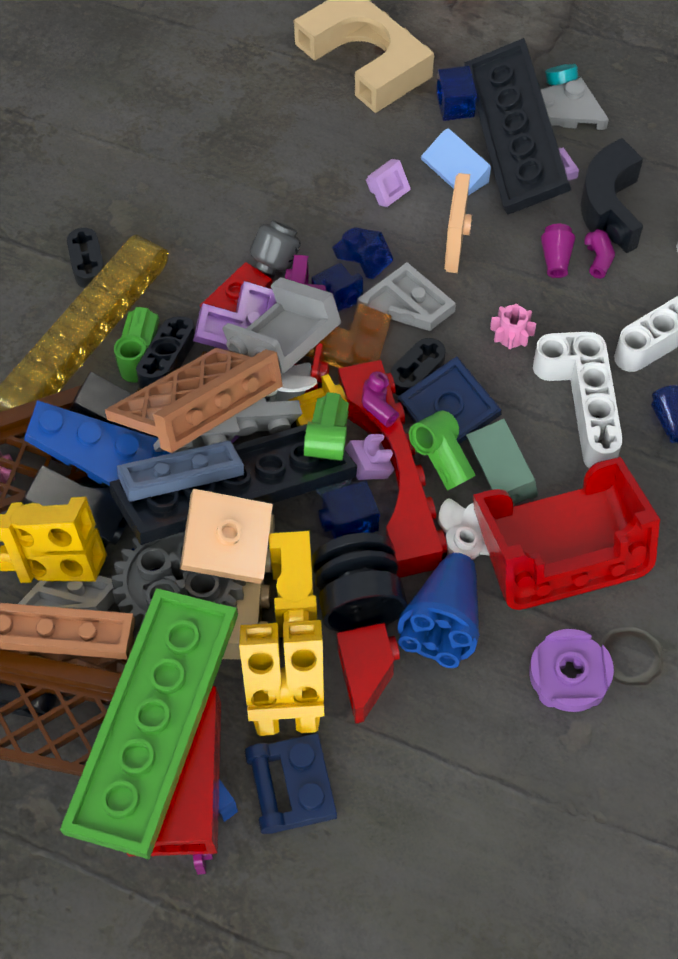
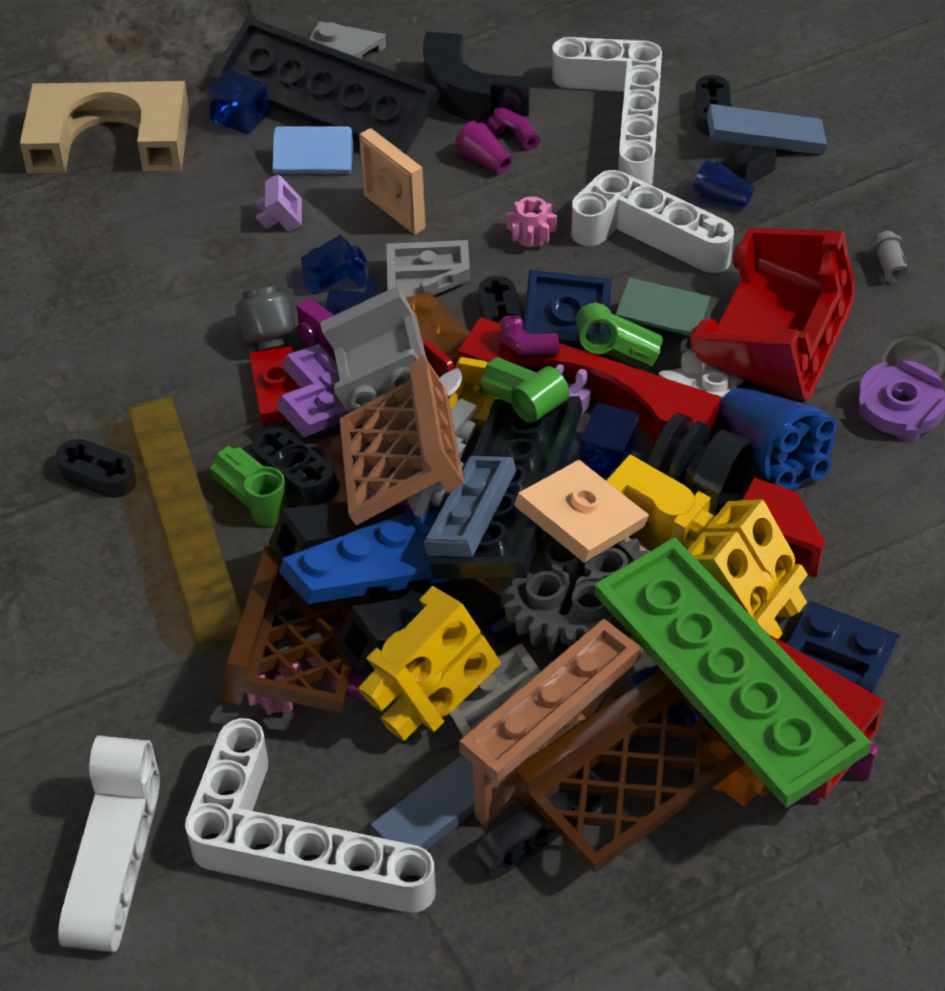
camera: 50 degrees left, 10 degrees down
(561, 74) = (304, 25): teal tile -> none

